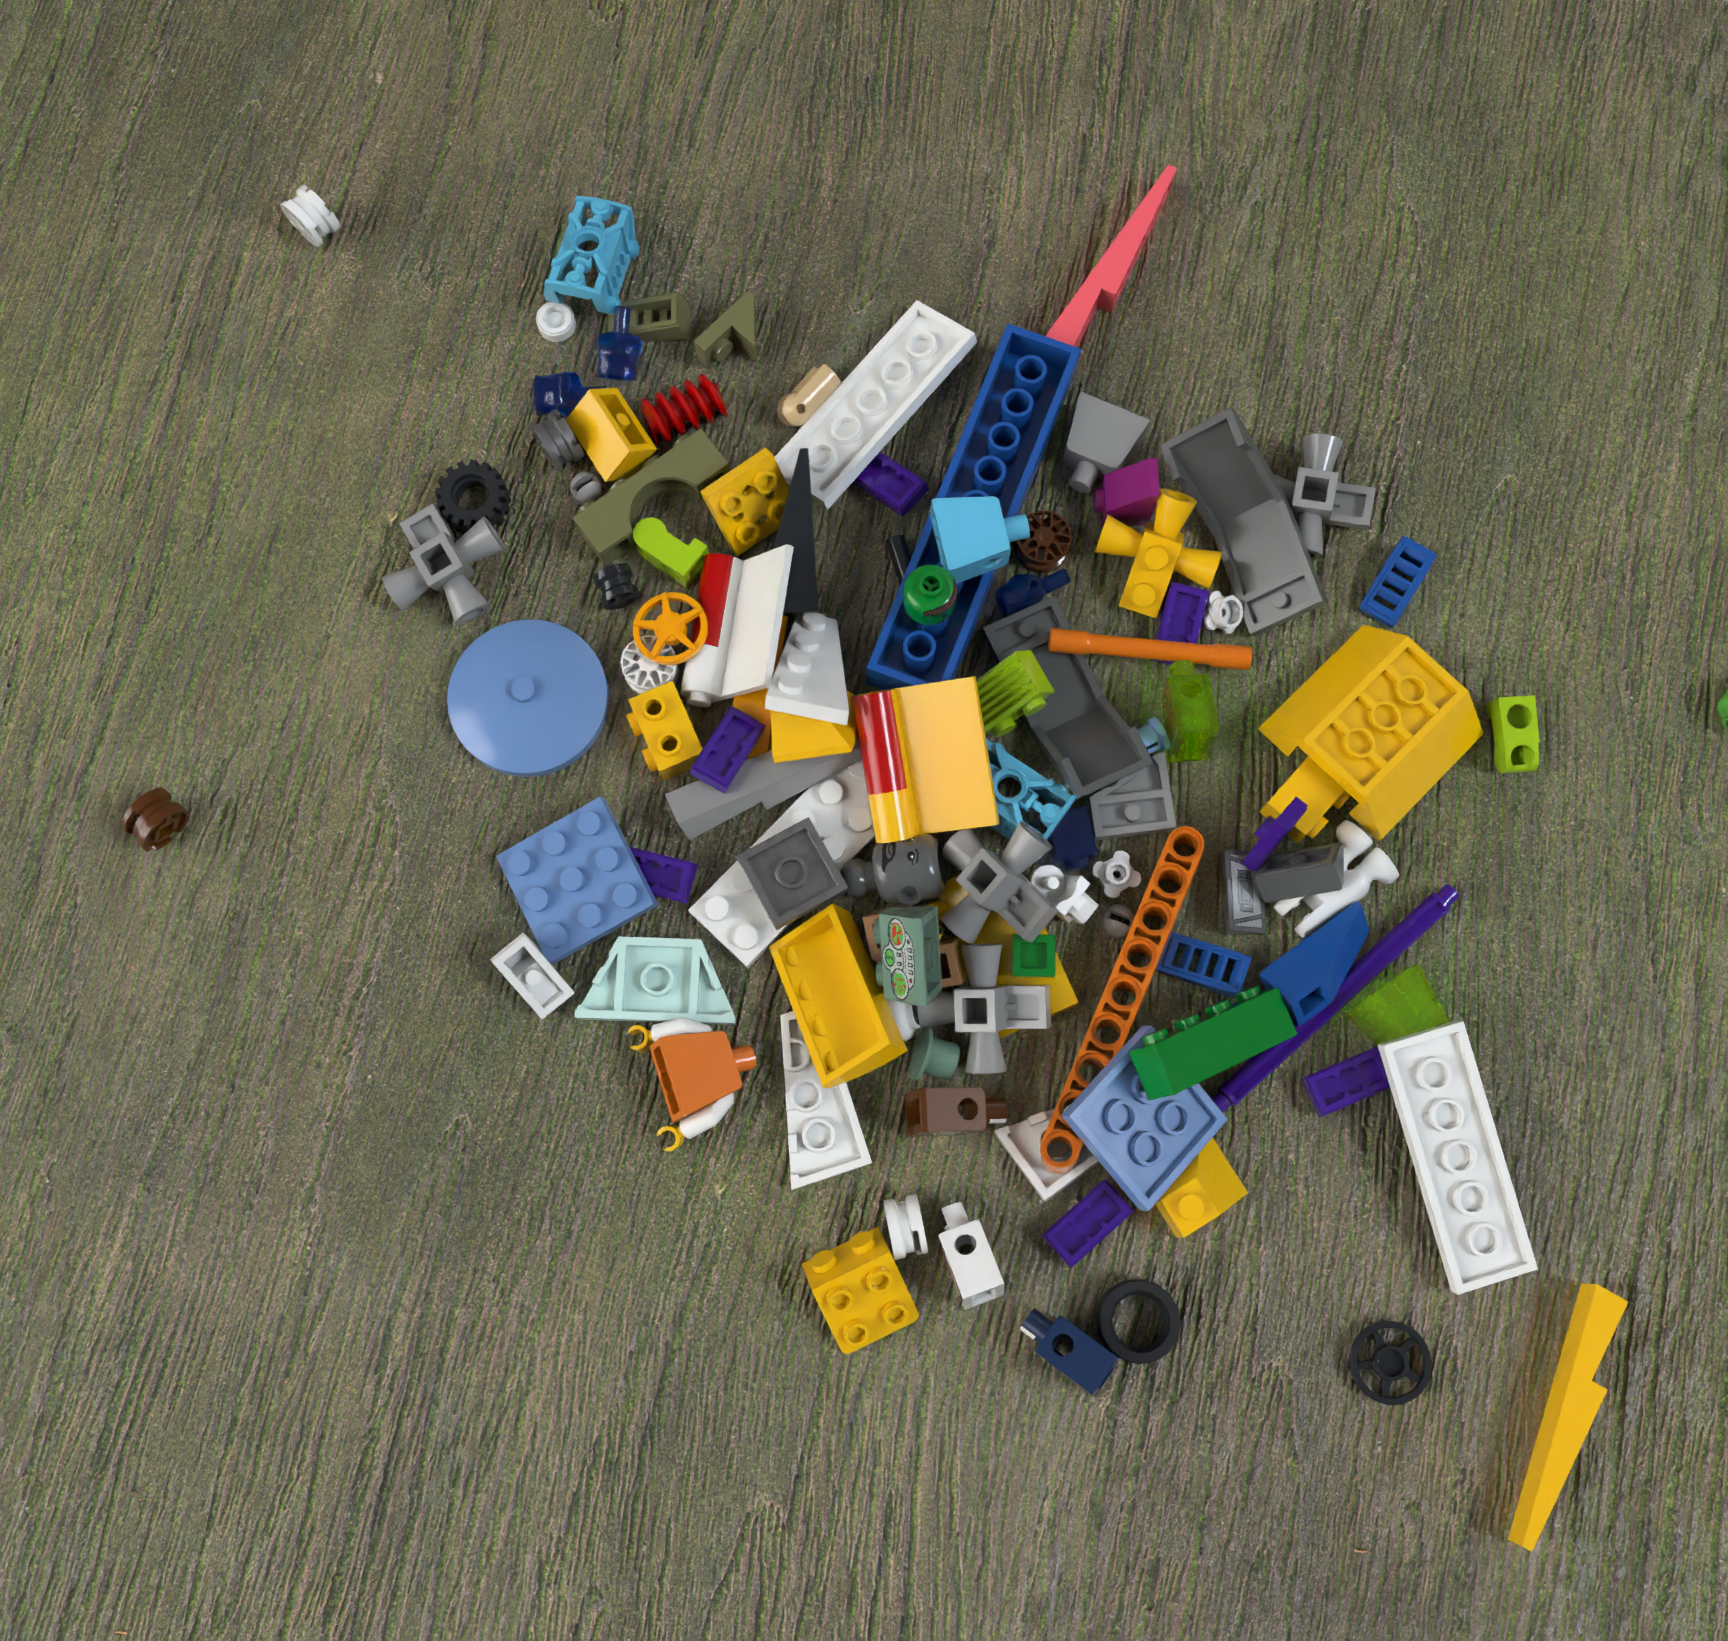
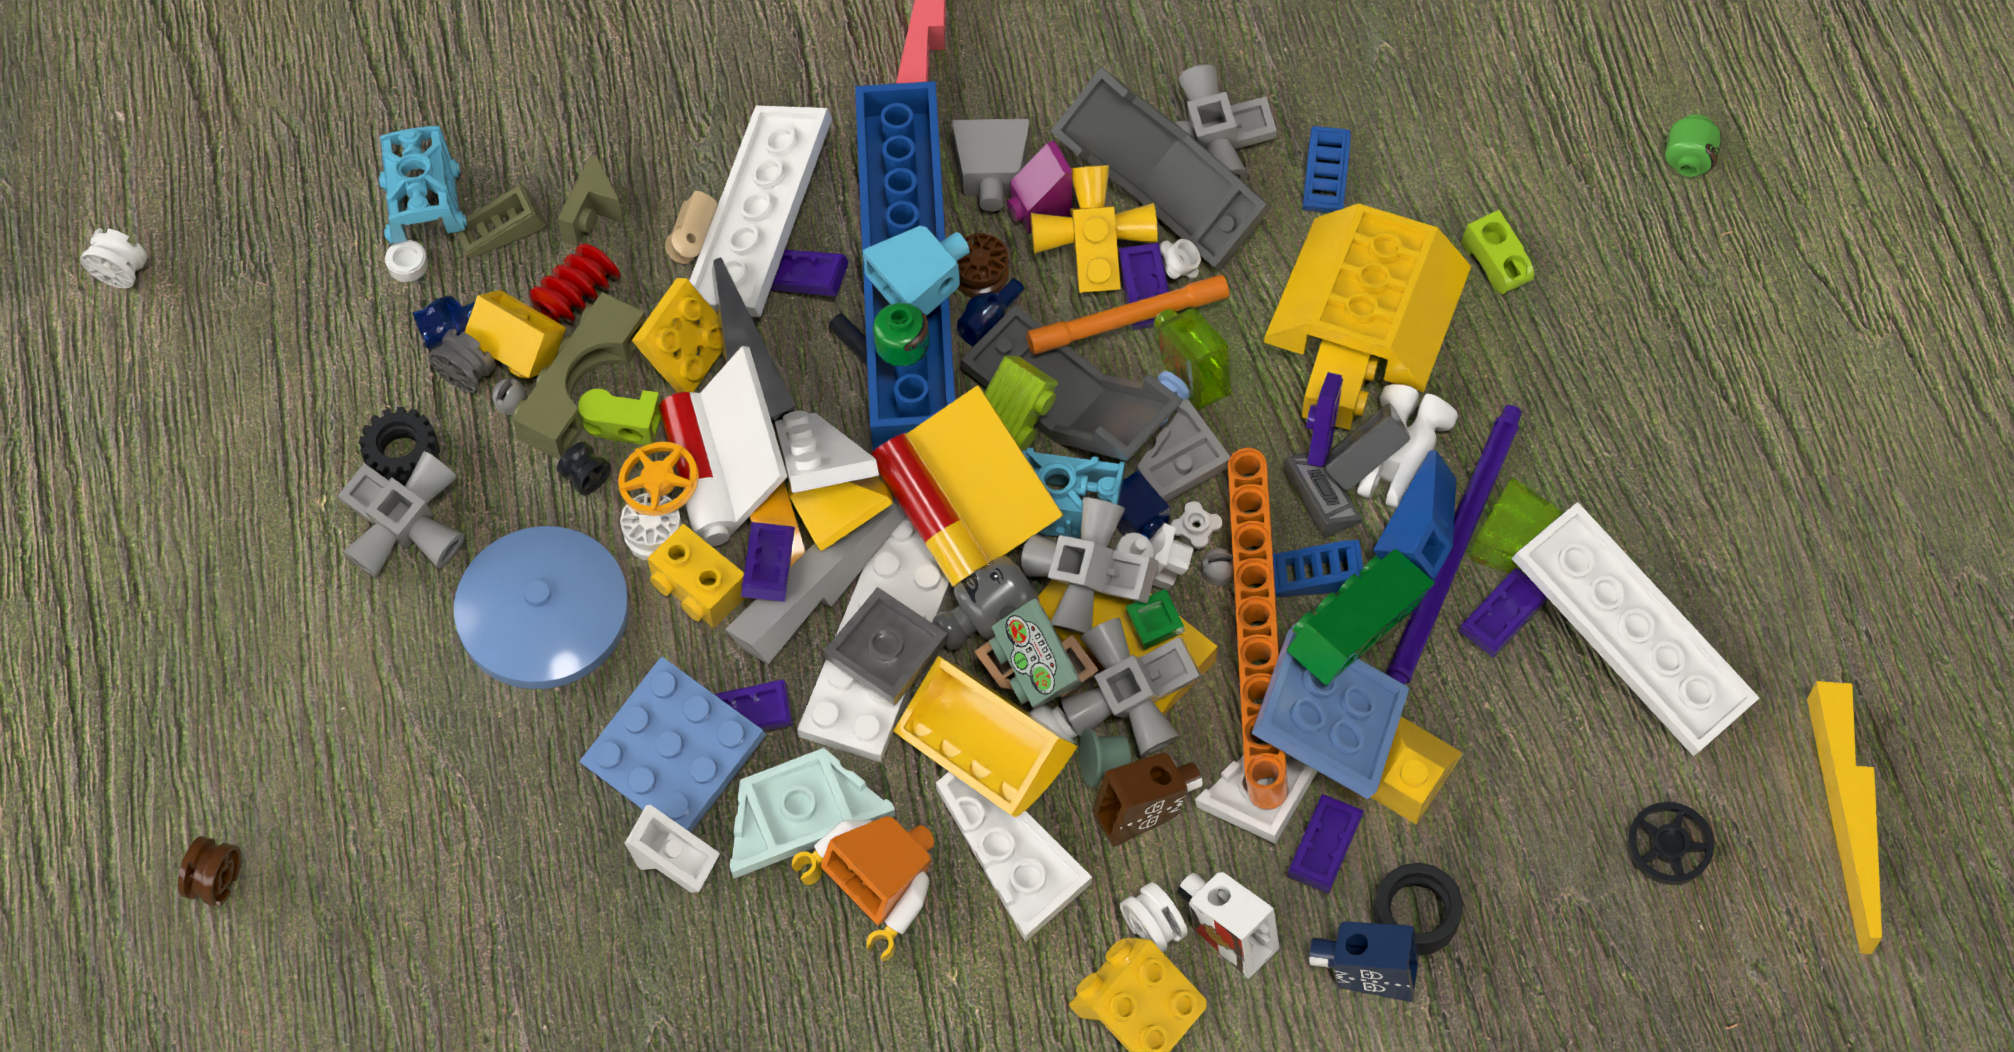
camera: 25 degrees left, 15 degrees down
(619, 349) = (484, 259): clear blue piece -> none

